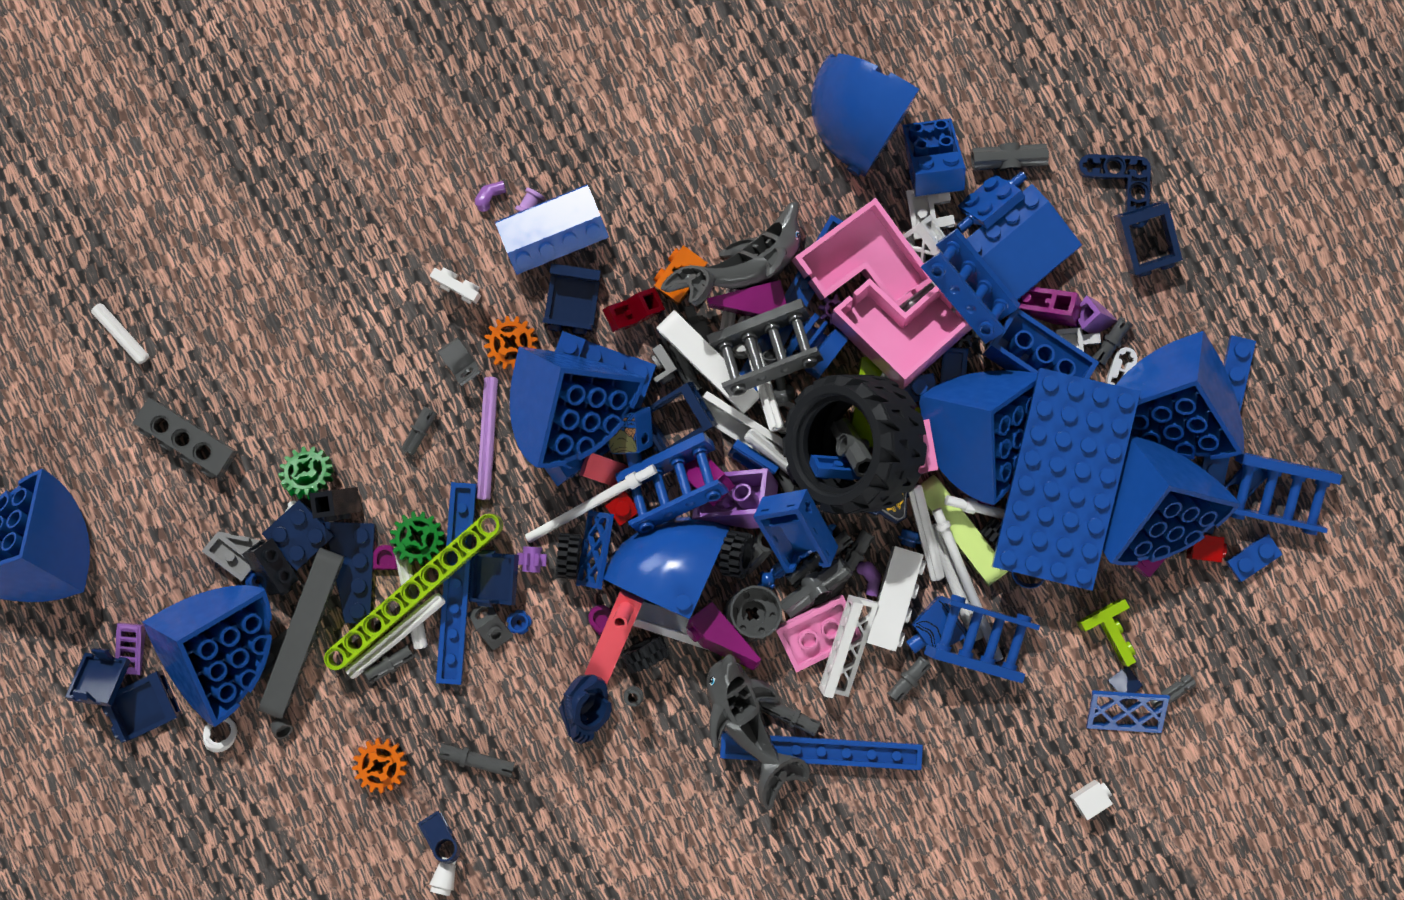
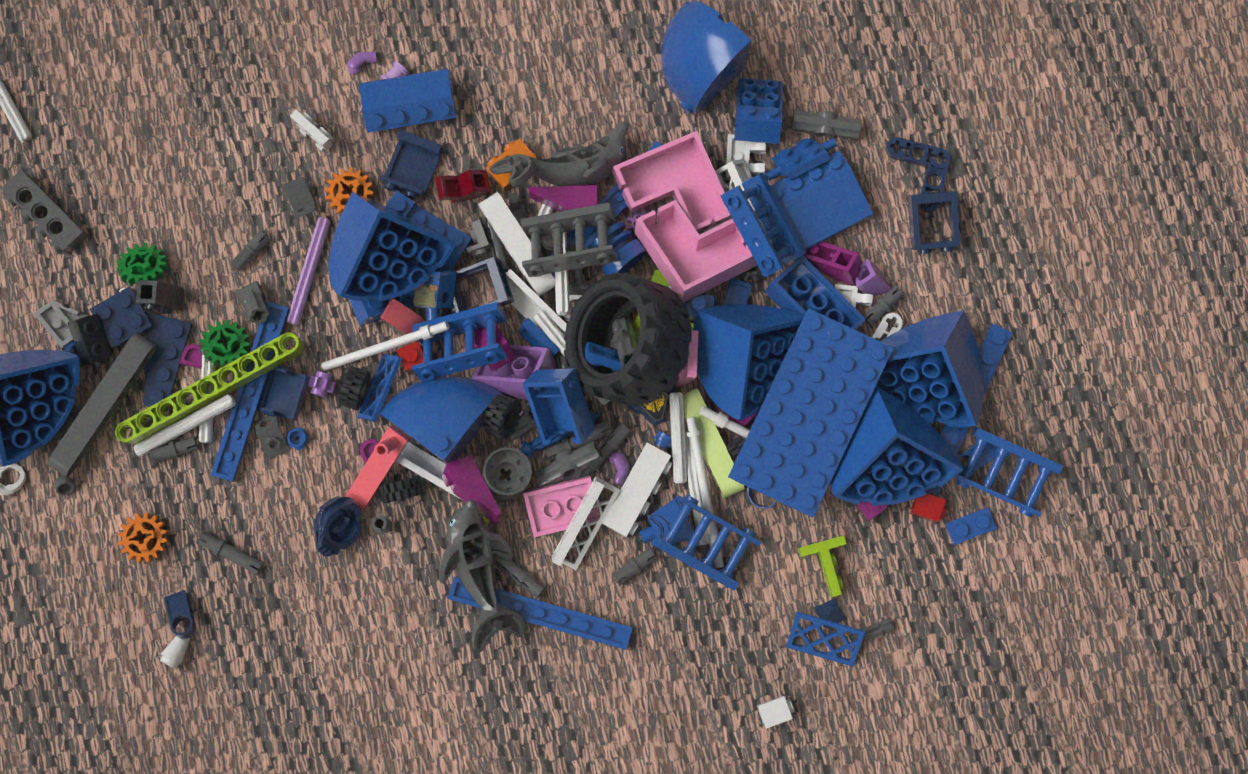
camera: 20 degrees right, 5 degrees down
(436, 486) = (253, 302): none -> dark grey piece

